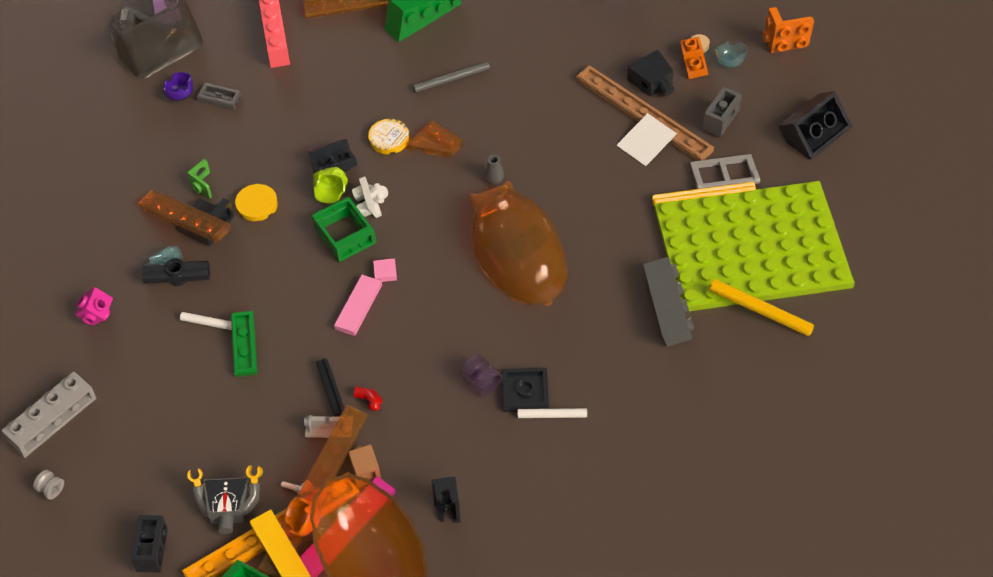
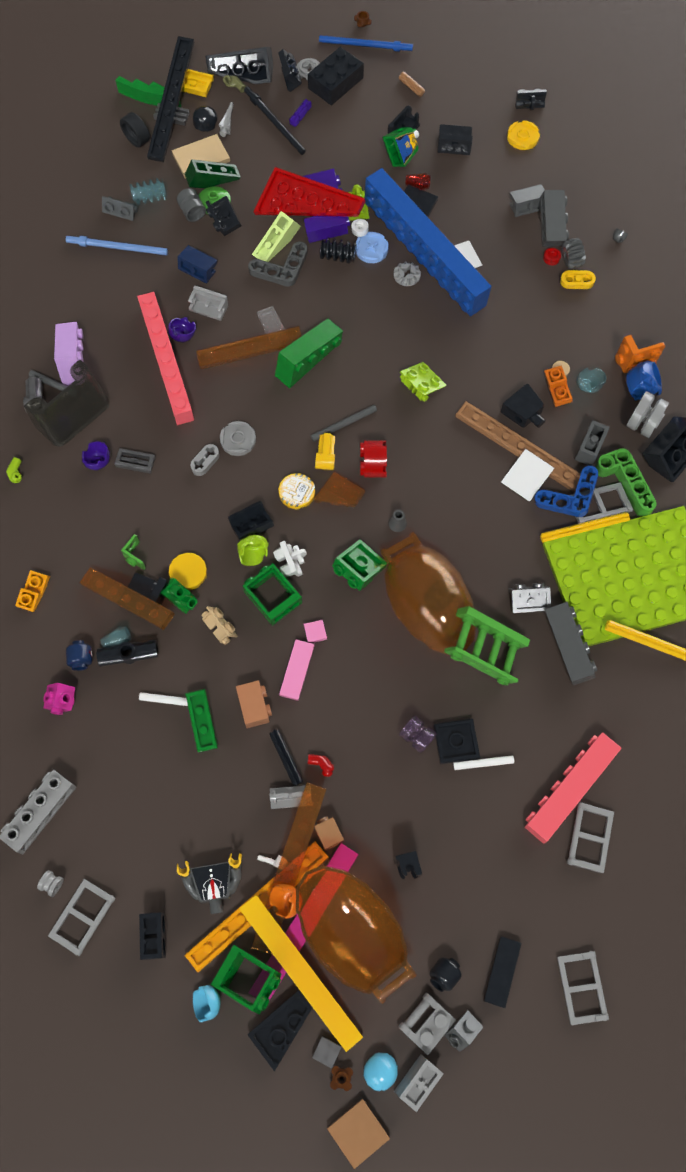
camera: 10 degrees left, 15 degrees up
(65, 514) = (77, 950): none -> light grey window
(88, 95) = (12, 470): none -> lime arm
(88, 206) = (33, 591): none -> light orange slope
(123, 269) = (79, 655): none -> dark blue head
(241, 220) = (179, 596): none -> green hips
(285, 259) = (224, 629): none -> tan hinge
(292, 98) = (206, 461): none -> light grey beam
(303, 331) = (252, 704): none -> nougat brick
(333, 83) = (237, 438): none -> light grey tile
(426, 104) = (325, 456): none -> yellow piece
(443, 208) = (358, 565): none -> green plate
(476, 108) = (374, 459): none -> red brick
(542, 43) = (421, 380): none -> lime hinge
(583, 276) = (499, 632): none -> bright green fence
(629, 255) = (531, 598): none -> bracket
(648, 444) = (572, 788): none -> coral brick
(665, 163) = (572, 501): none -> blue beam
(679, 504) = (577, 834): none -> light grey window
(754, 136) = (642, 502): none -> bright green beam
(787, 87) = (648, 415): none -> light grey wheel
(788, 58) = (644, 378): none -> blue piece

